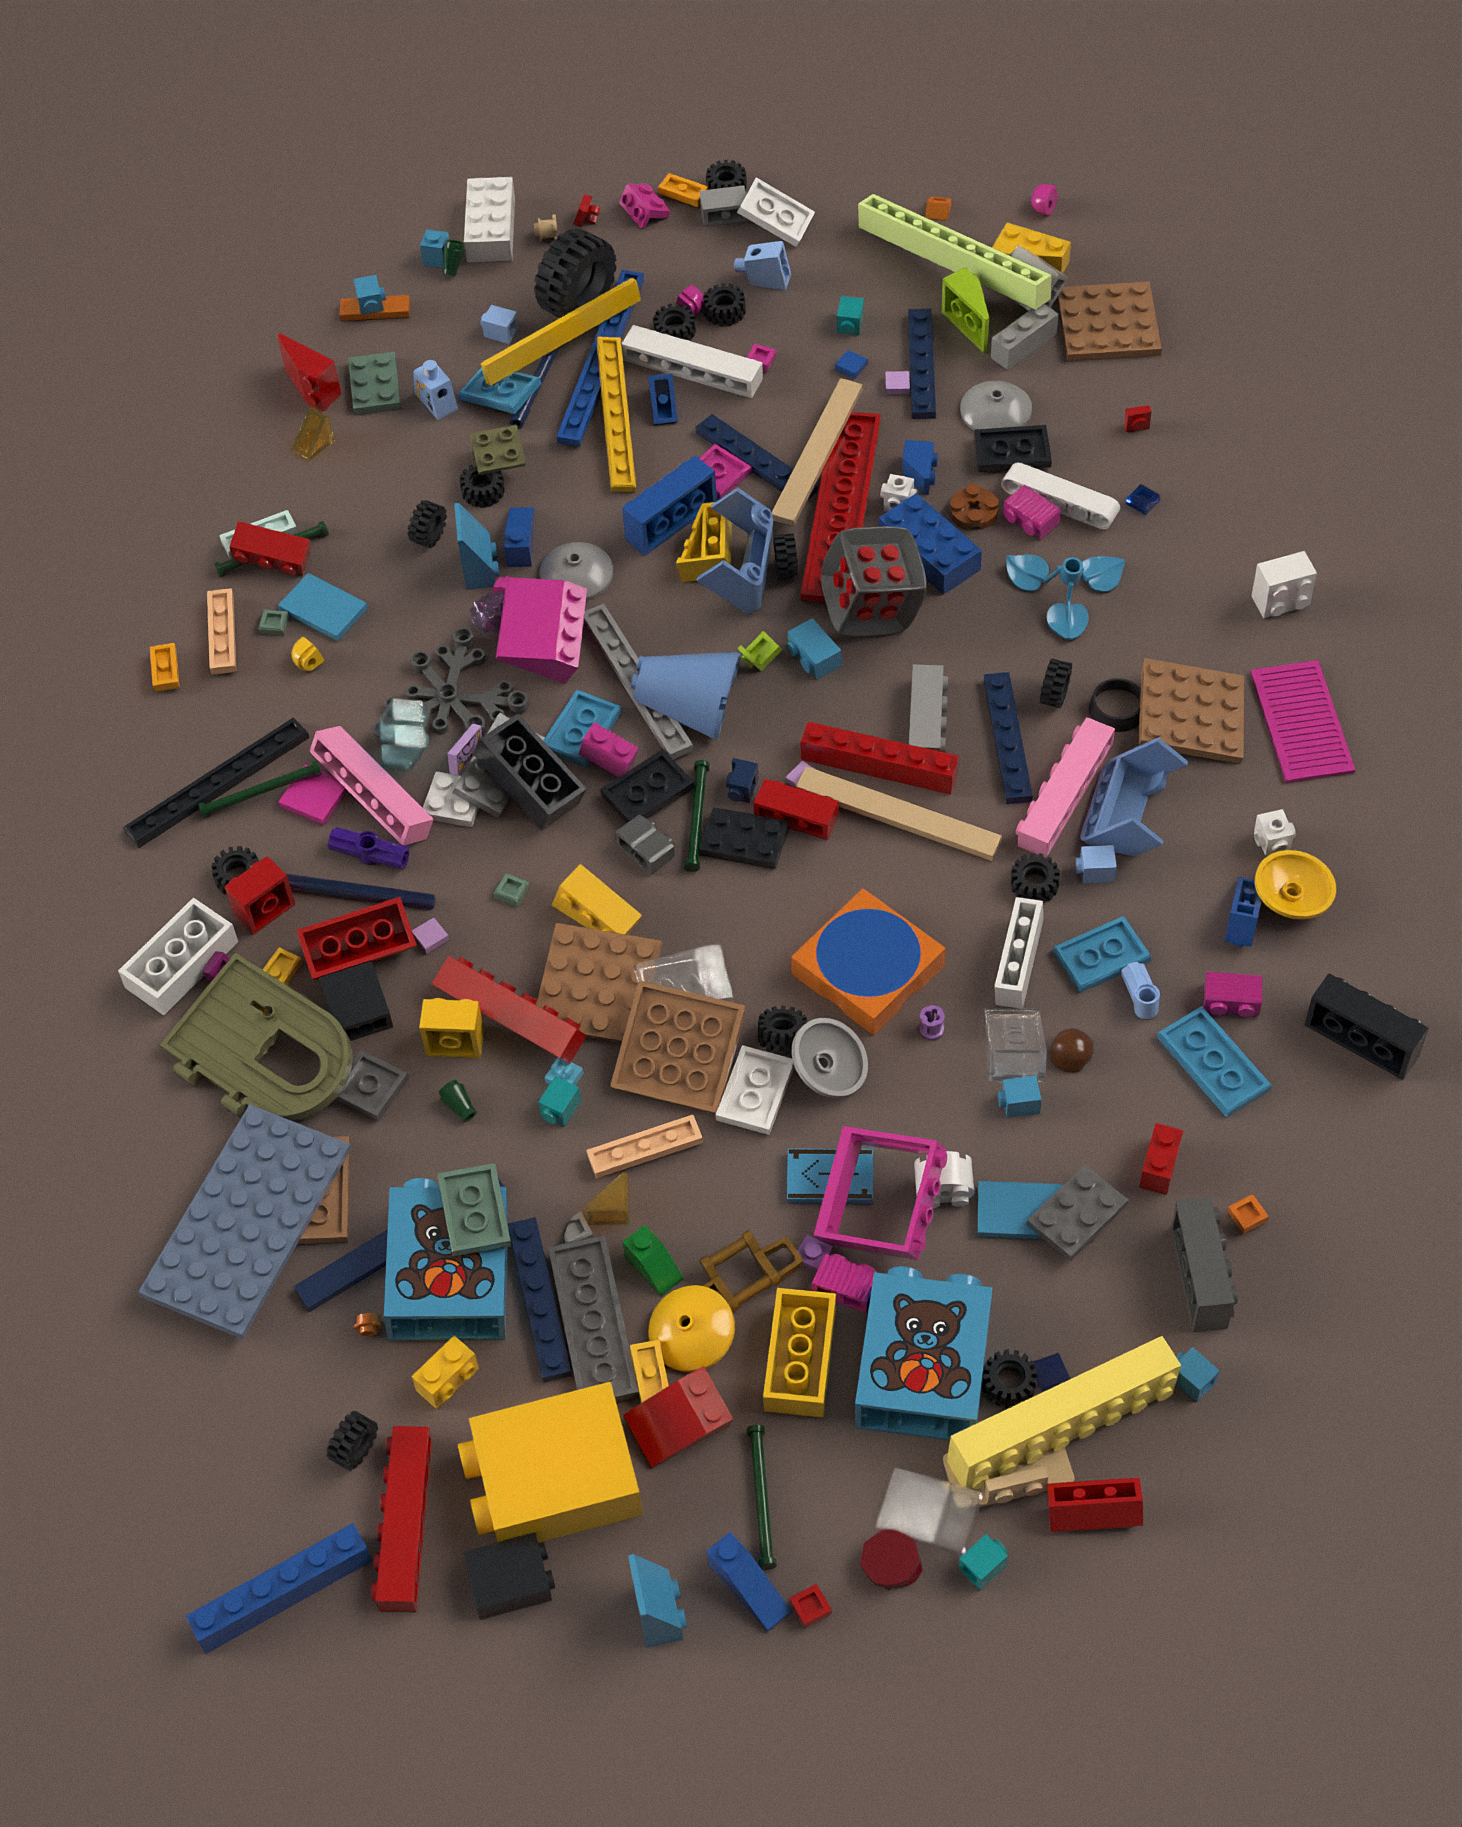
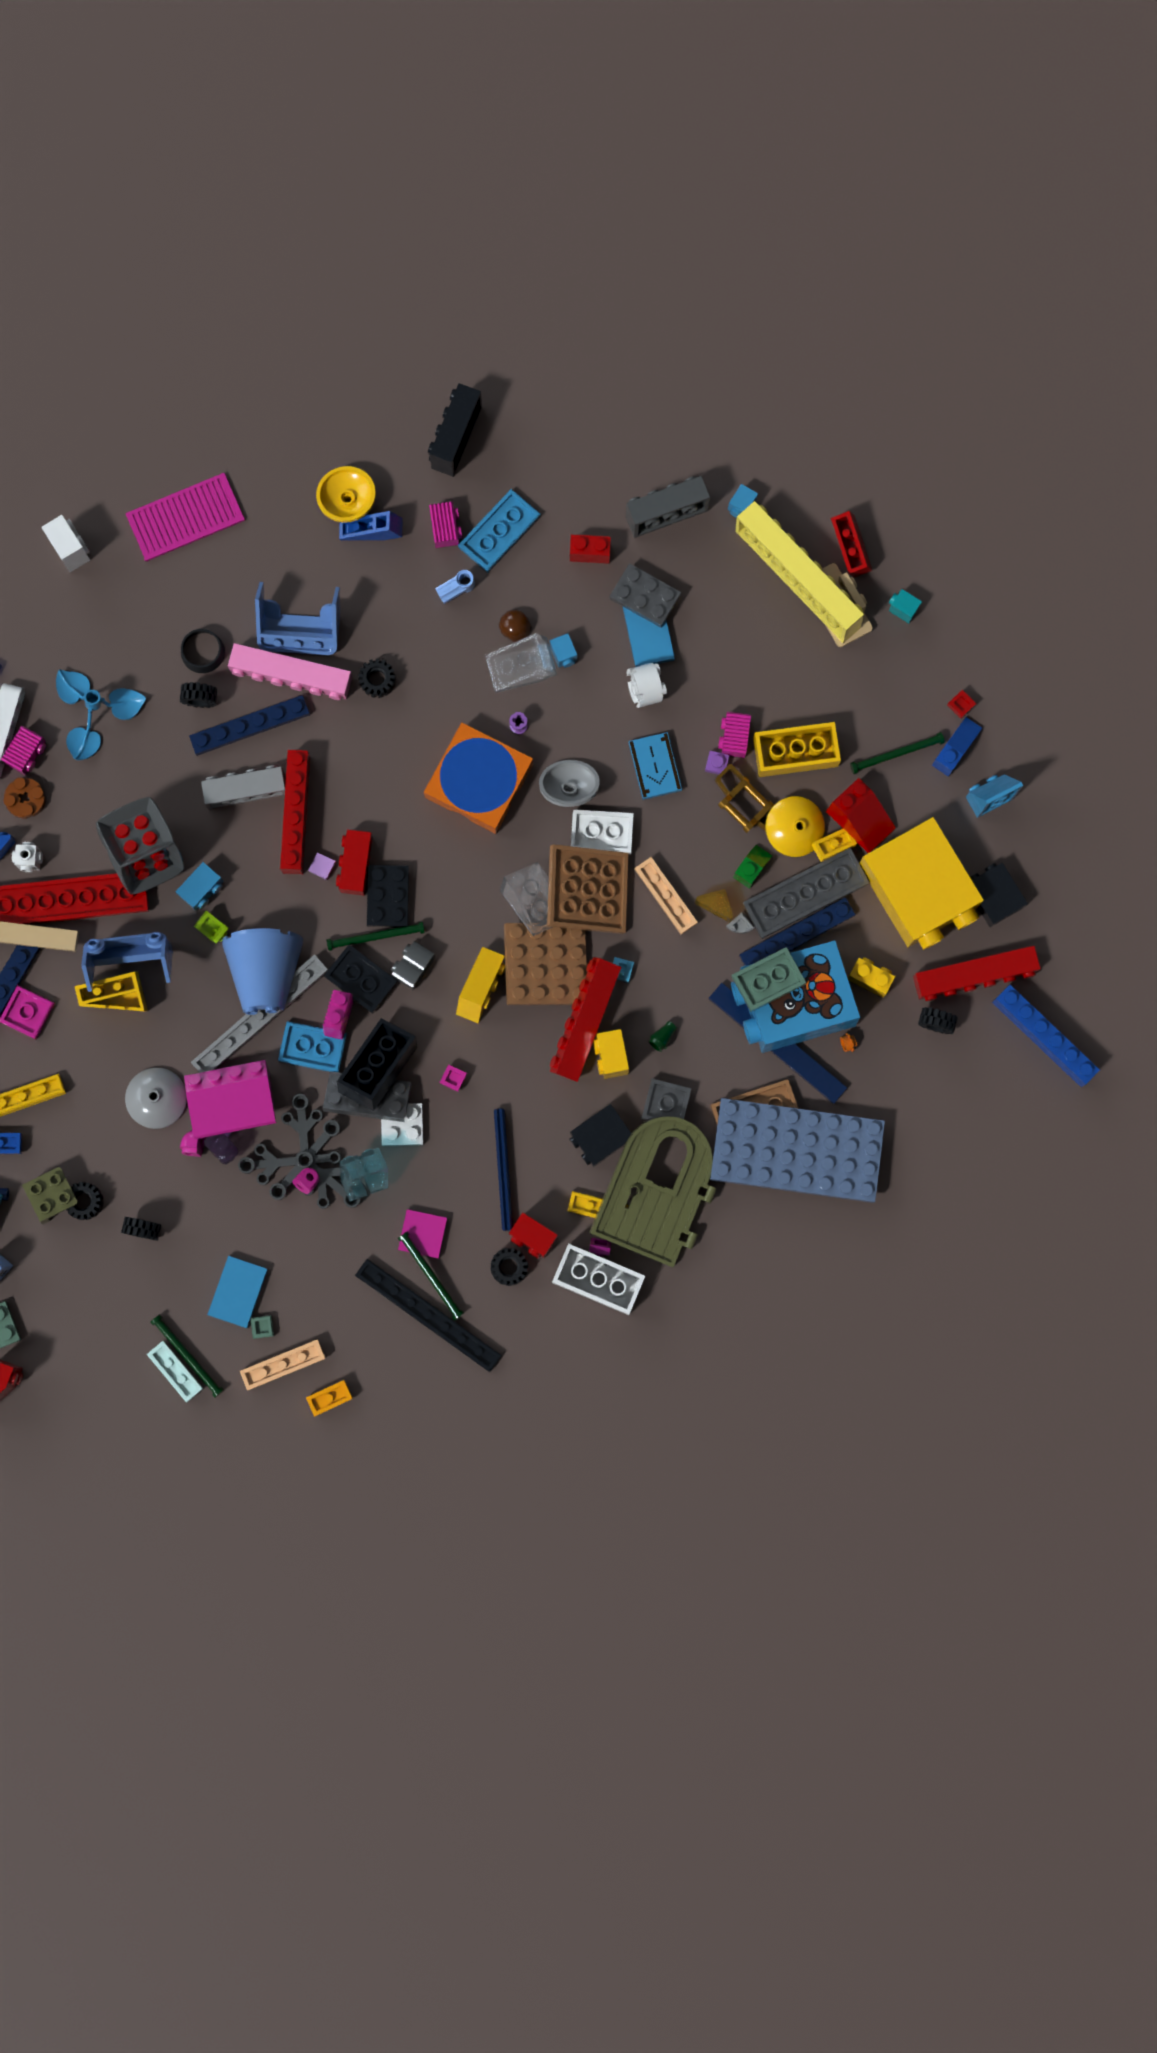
camera: 110 degrees left, 25 degrees up
(270, 548) = (195, 1351): red brick -> none
(306, 655) = (292, 1287): yellow piece -> none
(313, 434) = (60, 1362): clear yellow slope -> none
(356, 938) = (553, 1150): red slope -> none
(371, 785) = (409, 1188): bright pink brick -> none
(378, 850) = (466, 1158): dark purple piece -> none
(419, 682) = (306, 1180): none -> dark pink piece
(430, 935) = (528, 1102): lavender tile -> none
(463, 750) = (359, 1126): lavender tile -> none
(475, 551) = (165, 1177): dark azure slope -> none
(489, 859) = (453, 1078): none -> dark pink plate
(511, 890) = (473, 1055): sand green tile -> none
(519, 537) = (129, 1153): blue slope -> none
(559, 1101) = (647, 964): teal brick -> none
(668, 505) = (86, 1037): blue brick -> none
(742, 780) = (339, 909): dark blue brick -> none
(779, 1028) = (563, 823): black tyre -> none
(785, 556) = (115, 927): black tyre -> none
(841, 1179) = (708, 723): dark pink window -> none
(891, 1559) = (920, 661): dark red hat -> none
(902, 814) = (340, 788): tan tile -> none
(923, 1354) = (779, 668): dark azure brick -> none
(930, 1510) = (882, 643): clear slope -> none
(944, 550) = (73, 821): blue brick -> none
(1009, 1362) = (780, 605): black tyre -> none
(1019, 953) = (448, 673): white brick -> none
(1050, 1372) = (762, 593): clear blue tile -> none
(1097, 864) = (355, 636): light blue brick -> none
(1101, 953) = (428, 621): dark azure tile -> none
(1192, 710) = (198, 594): medium nougat plate -> none
(1247, 1214) = (615, 488): orange plate -> none
(1274, 832) = (301, 516): white brick -> none

